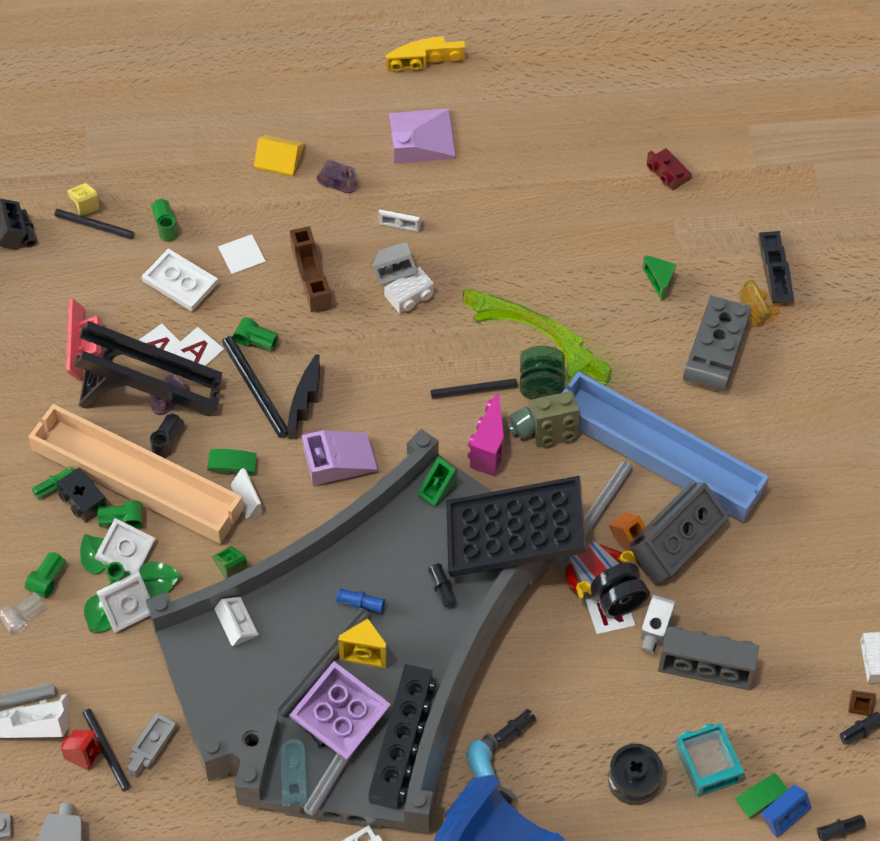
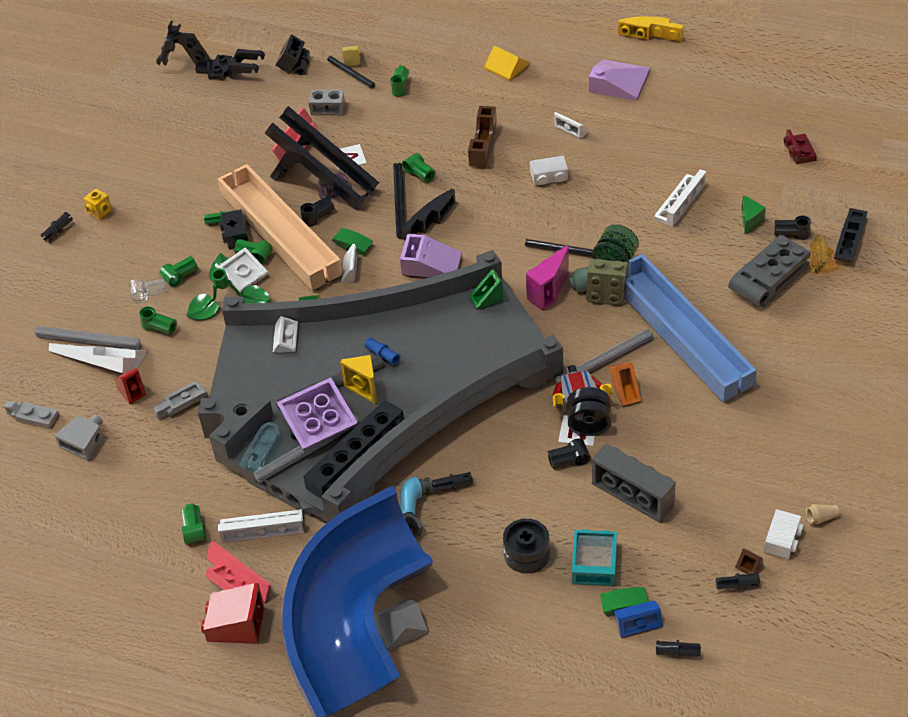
camera: 30 degrees right, 10 degrees down
(62, 652) = (151, 320): none -> green piece
(93, 281) = (327, 102): none -> light grey brick
(106, 750) = (149, 394): black bar -> none
(125, 601) = (212, 300): white plate -> none
(180, 280) = (387, 119): white plate -> none
(198, 347) = (375, 165): white sticker -> none
(241, 254) = (442, 117): white sticker -> none
(337, 175) = (539, 87): piece -> none
(396, 263) = (549, 148): light grey torso -> none
(442, 585) = (449, 361): black axle -> none
(515, 526) = (524, 334): black plate -> none
(576, 357) = (653, 250): clear neon green slope -> none
(579, 276) = (681, 202): none -> white fence
(624, 643) = (575, 453): none -> black piece
(657, 618) = (609, 433): torso -> none
(678, 531) = (644, 392): dark grey hinge -> none
(710, 278) = (799, 227): none -> black piece

